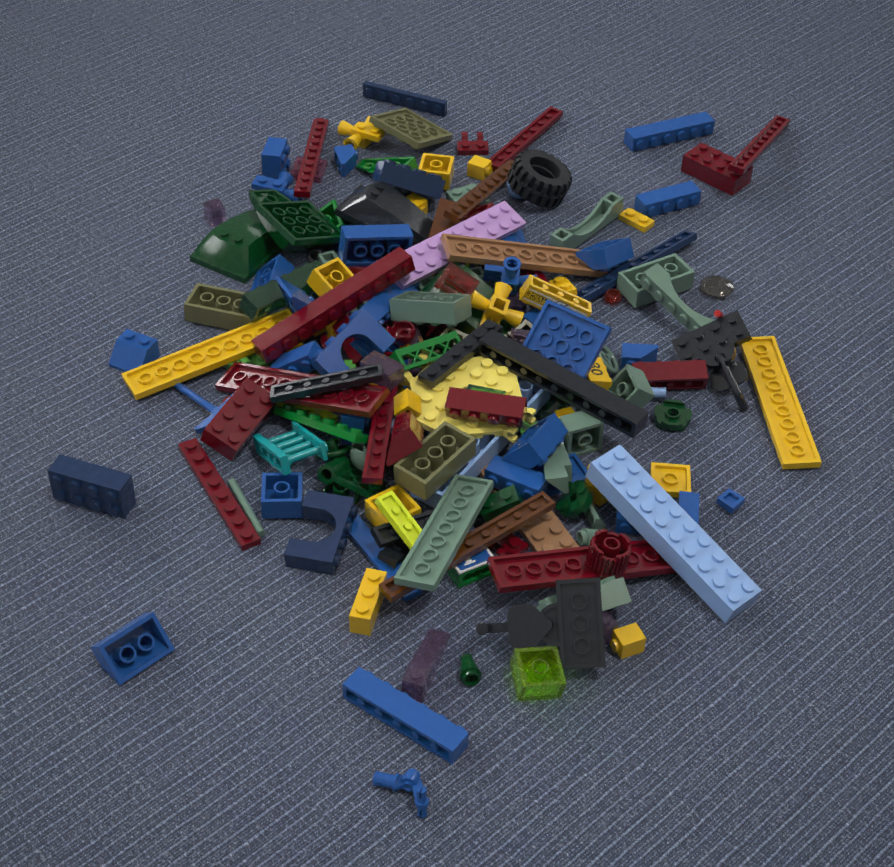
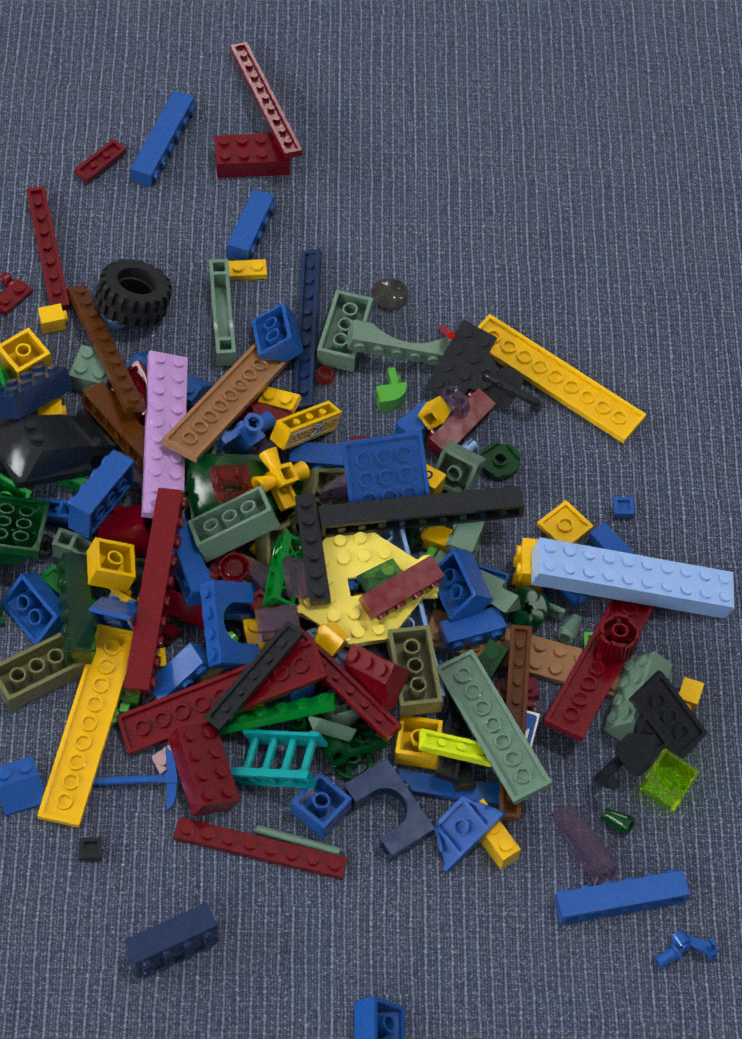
camera: 50 degrees left, 15 degrees up
(124, 412) = (90, 849): none -> black plate
(341, 455) = (332, 729): none -> sand green slope
(348, 576) = (464, 828): none -> blue wing
(426, 355) = (295, 578): none -> clear purple tile
(614, 120) = (100, 161): none -> dark red plate
(642, 332) = (392, 395): none -> bright green brick
(654, 351) = (434, 413): none -> yellow brick
(677, 354) = (459, 398): none -> clear purple beam

